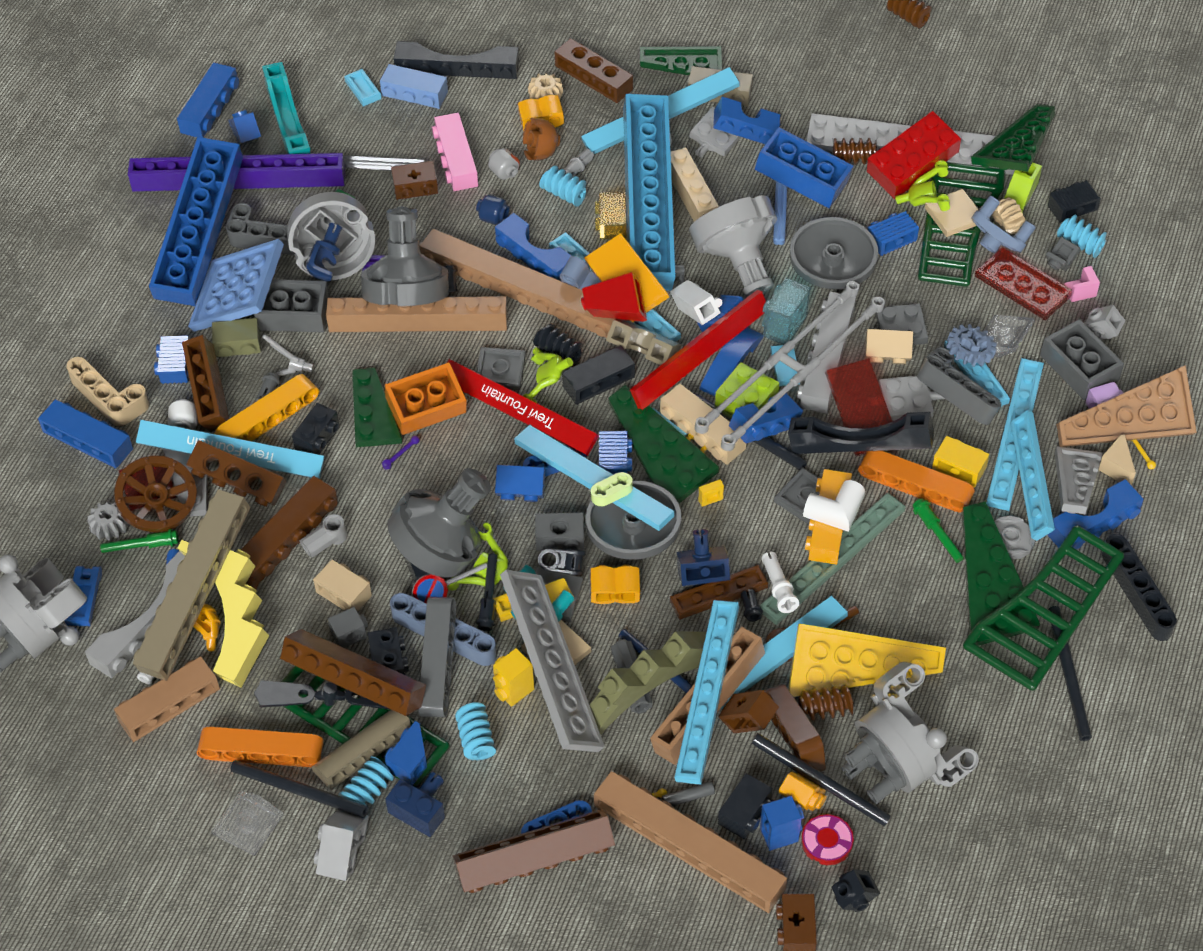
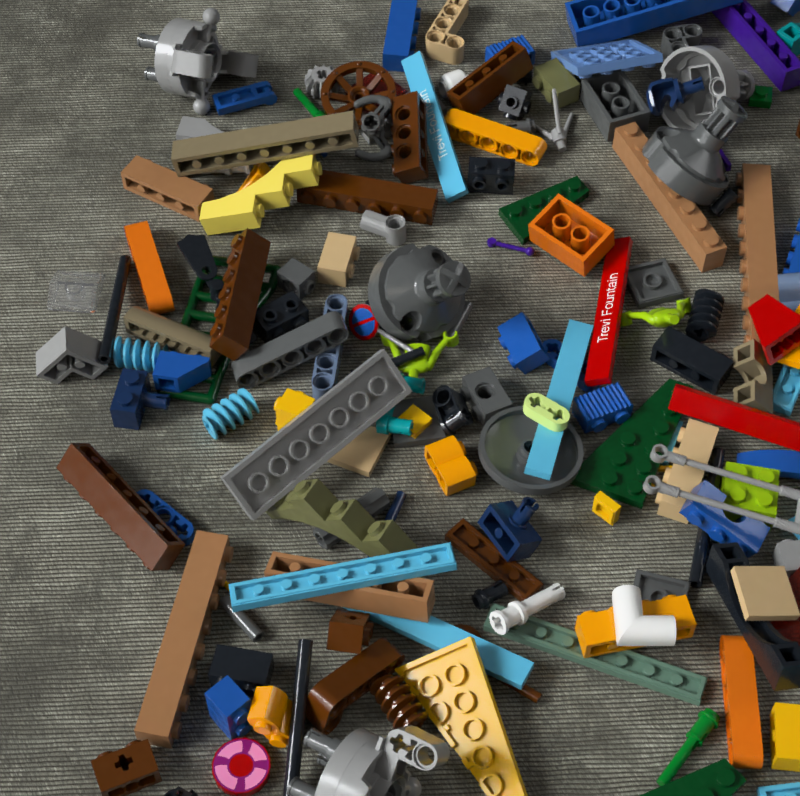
camera: 65 degrees right, 0 degrees up
(202, 489) = (374, 126): none -> dark grey piece
(239, 377) = (519, 97): none -> black brick
(846, 419) = (764, 593): none -> tan tile

